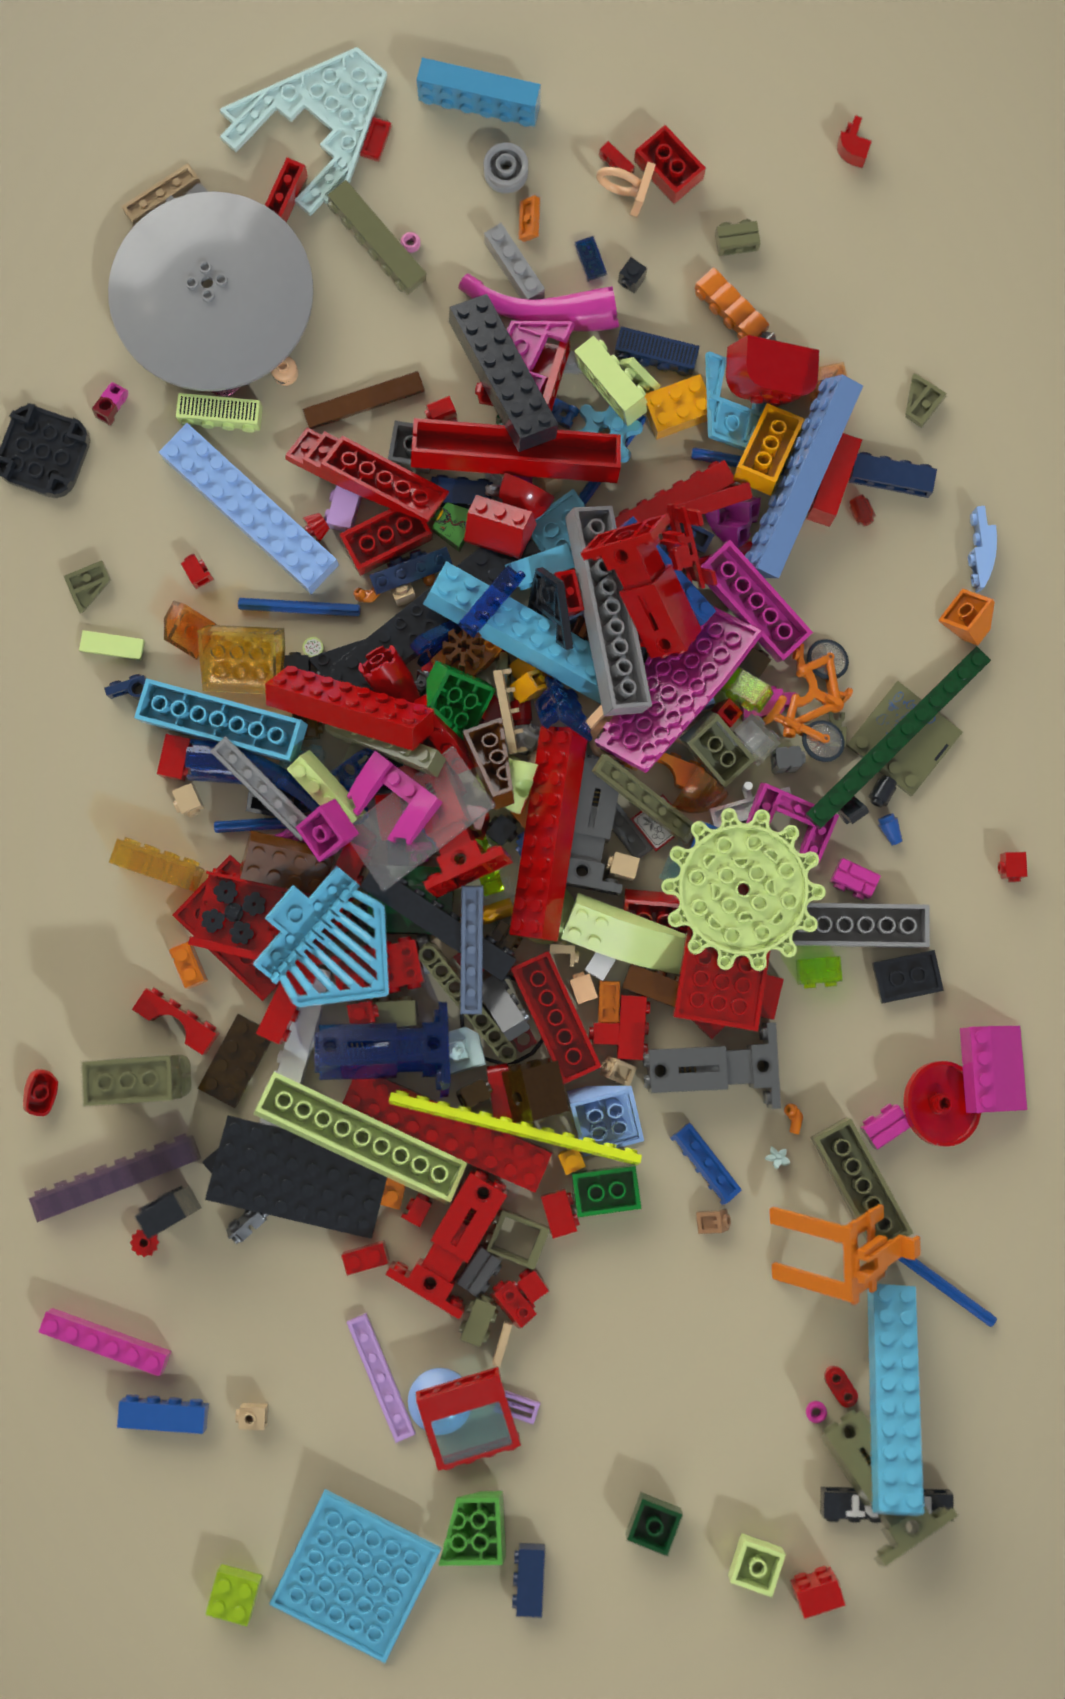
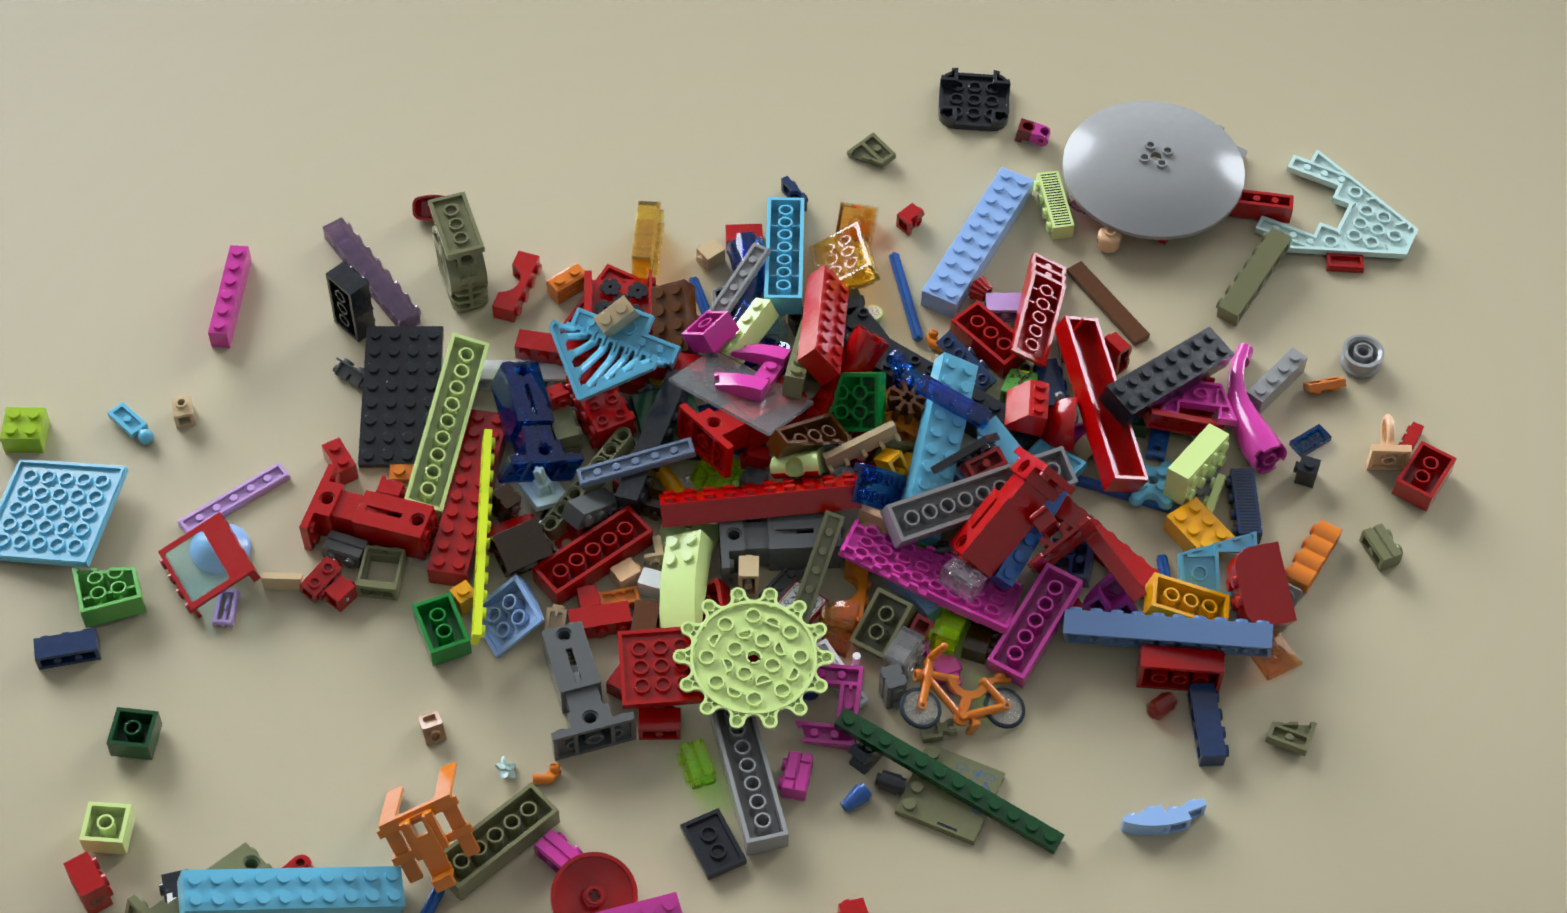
camera: 75 degrees right, 30 degrees down
(112, 645) = (826, 179): yellowish green tile -> none
(139, 1248) = (320, 305): red piece -> none
(163, 1415) = (173, 349): blue brick -> none
(173, 185) = (1239, 136): tan tile -> none
(235, 1062) = (497, 333): dark brown plate -> none
(253, 1475) = (131, 423): none -> medium azure plate
(288, 928) = (616, 317): none -> tan brick
(410, 236) = (1263, 305): bright pink plate -> none
(478, 92) = (1418, 319): dark azure brick -> none
(481, 1312) = (299, 556): olive brick -> none
(559, 1213) = (404, 597): red brick -> none
(699, 658) = (961, 579): none -> clear brick
(706, 1163) = (486, 710): blue hinge -> none
(816, 1418) = (266, 850): dark pink plate -> none
(852, 147) = (1517, 621): red brick -> none
(969, 616) = (1089, 820): orange slope -> none

